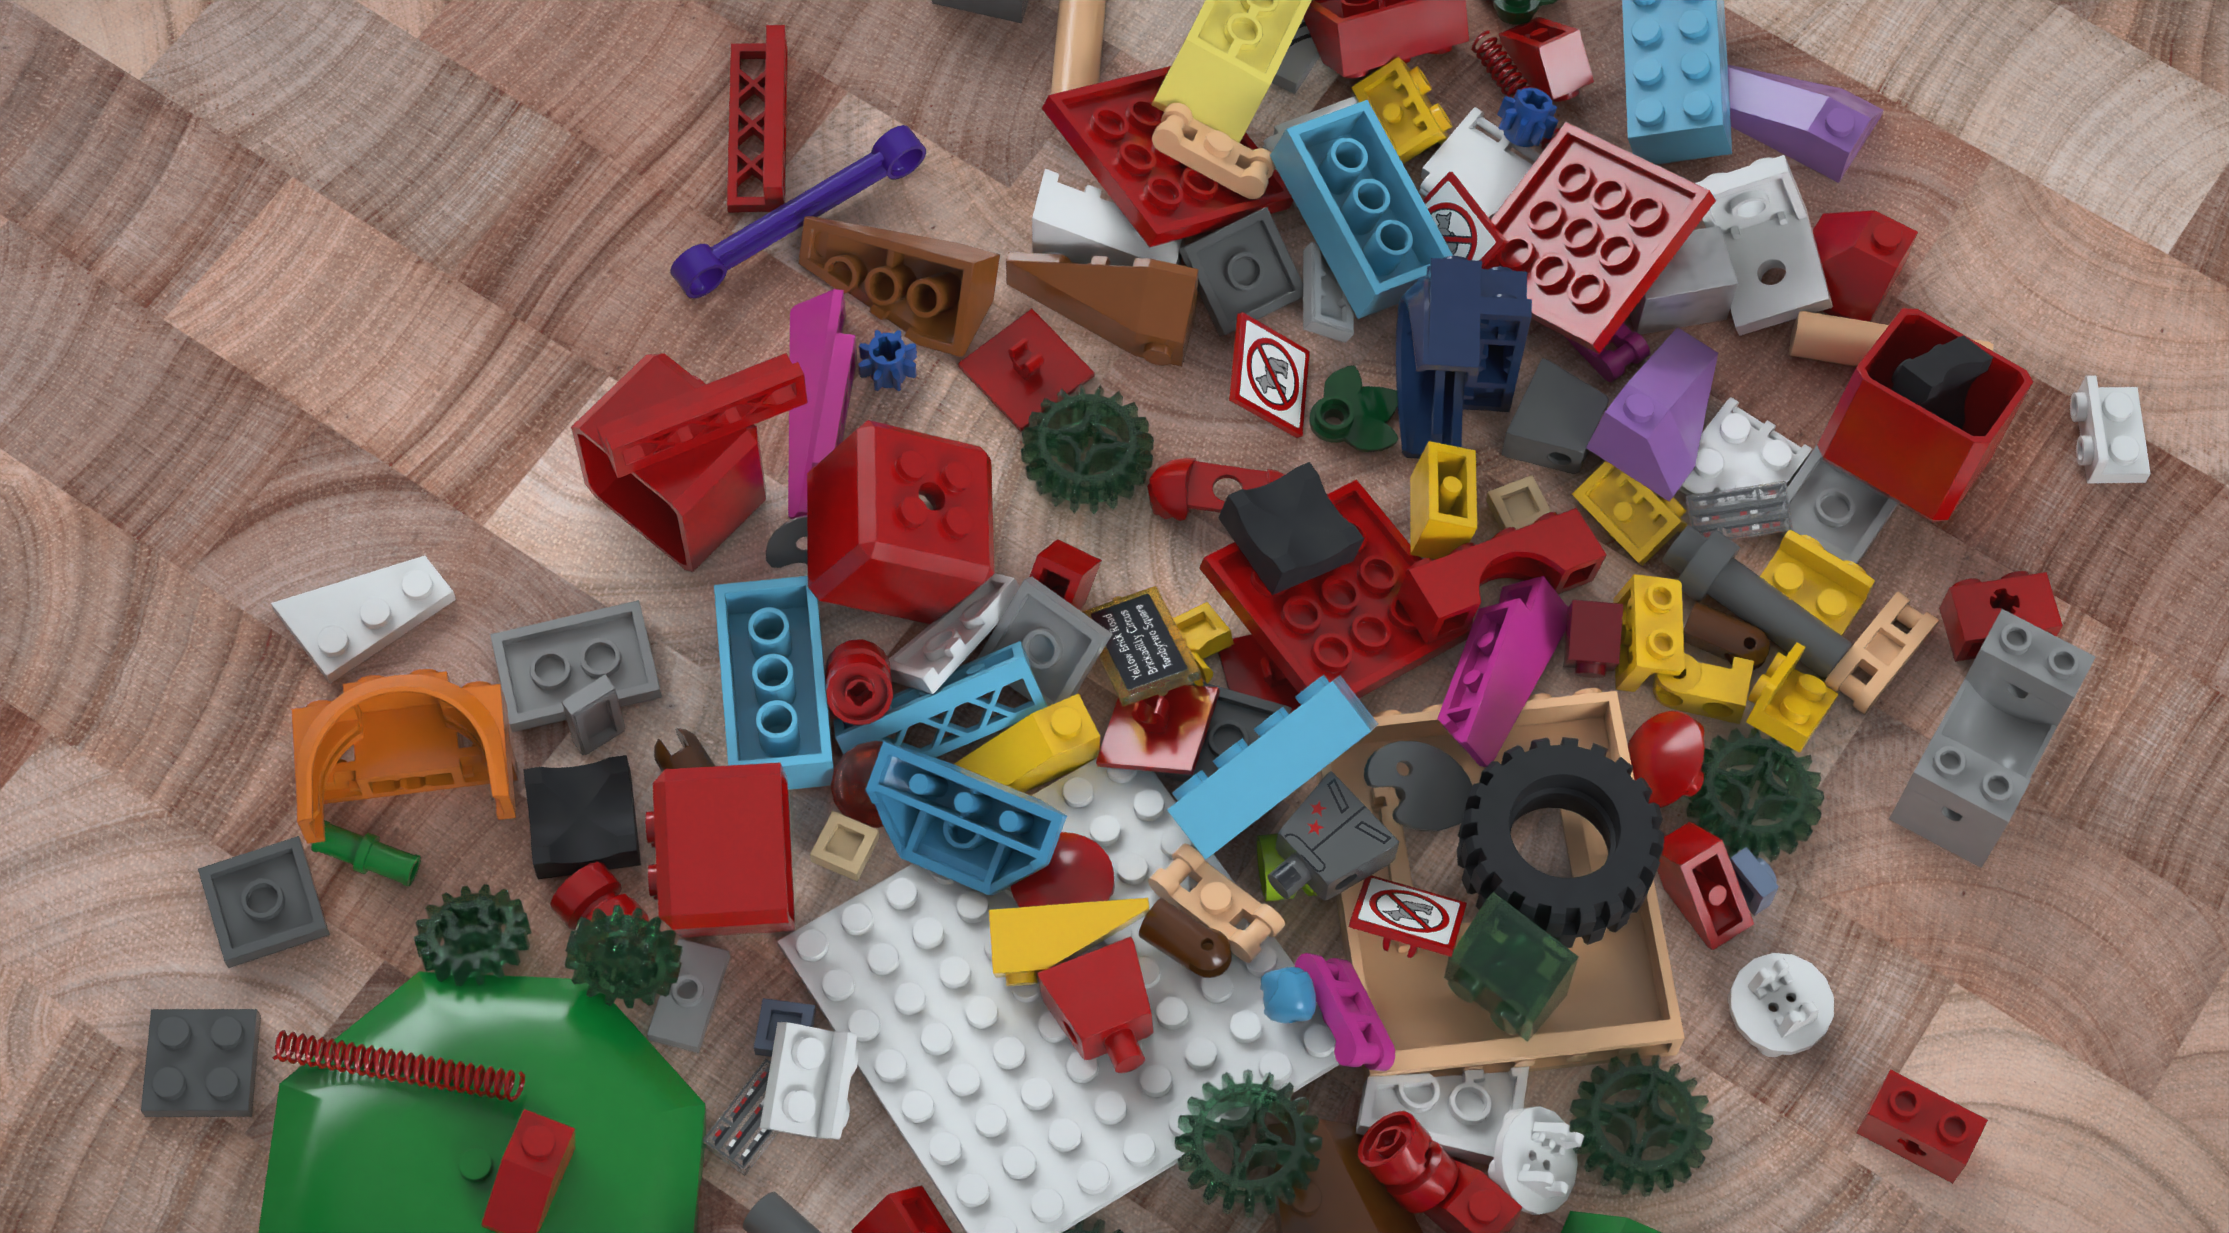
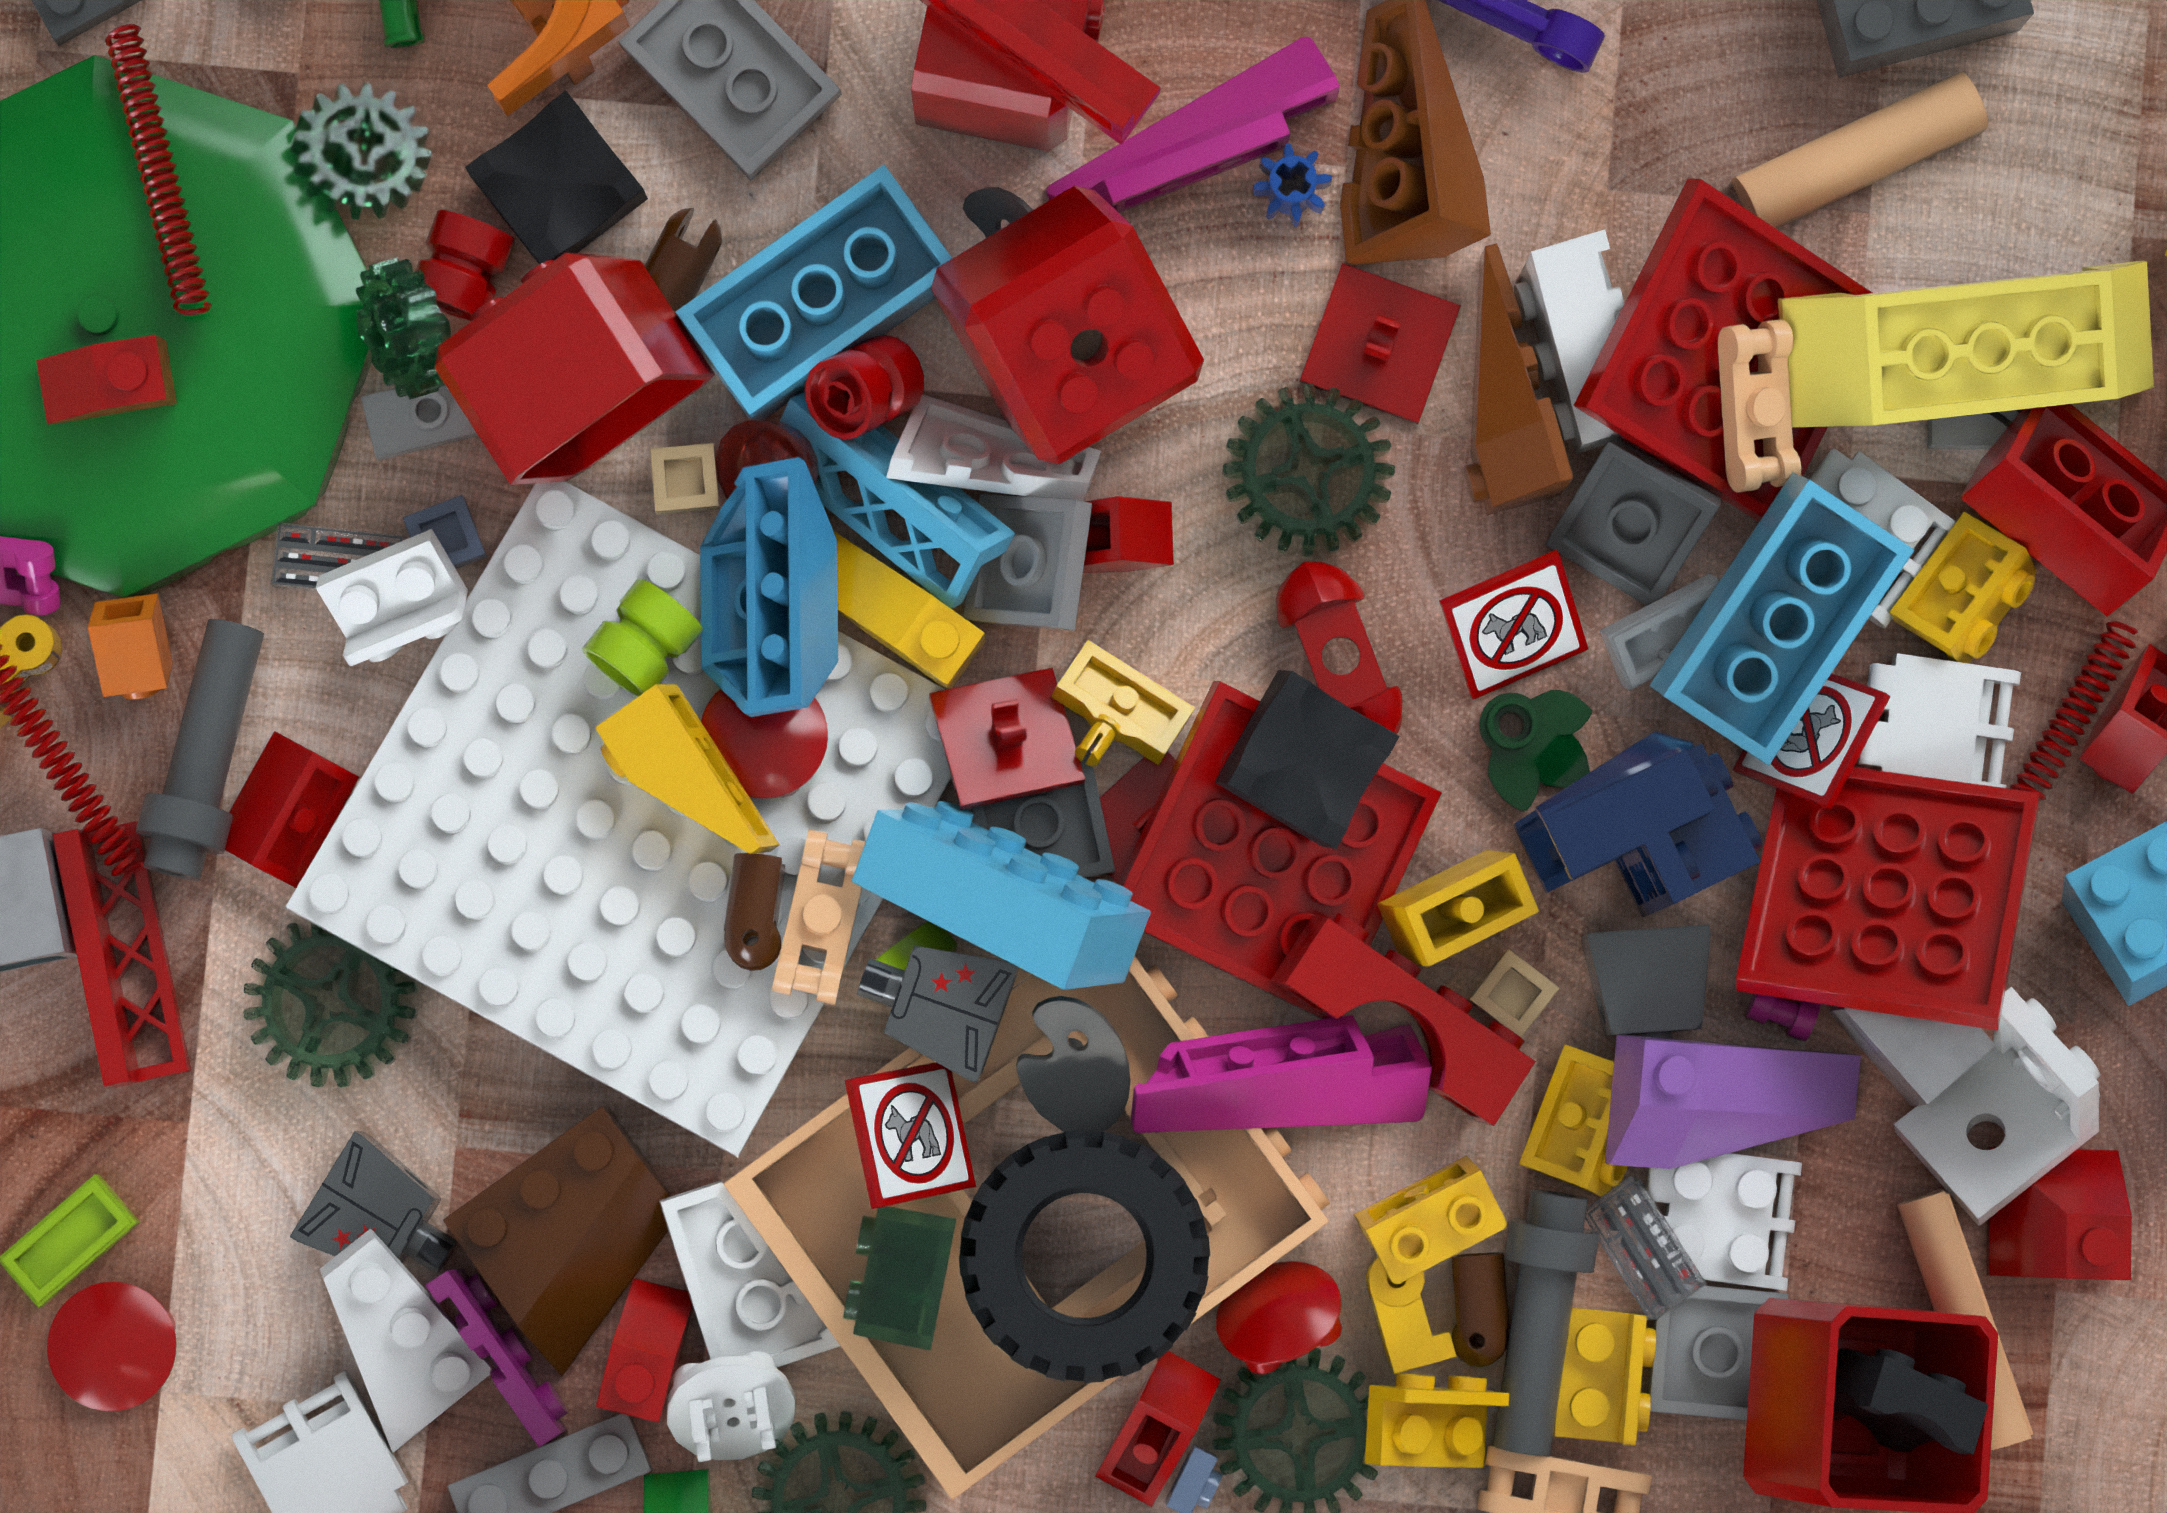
camera: 60 degrees right, 20 degrees up
(594, 715) = (668, 127): light grey tile -> none
(946, 922) = (648, 631): none -> lime wheel
(1101, 1003) = (631, 862): red torso -> none
(1145, 647) = (1085, 676): piece -> none
(1265, 1152) = (557, 1132): clear green gear -> none
(1288, 995) = (745, 1054): dark azure piece -> none
(1348, 1013) = (770, 1123): dark pink plate -> none
(1408, 1162) = (643, 1276): red wheel -> none
(1527, 117) = (2027, 743): blue gear -> none
(1593, 637) = (1389, 1160): dark red brick -> none

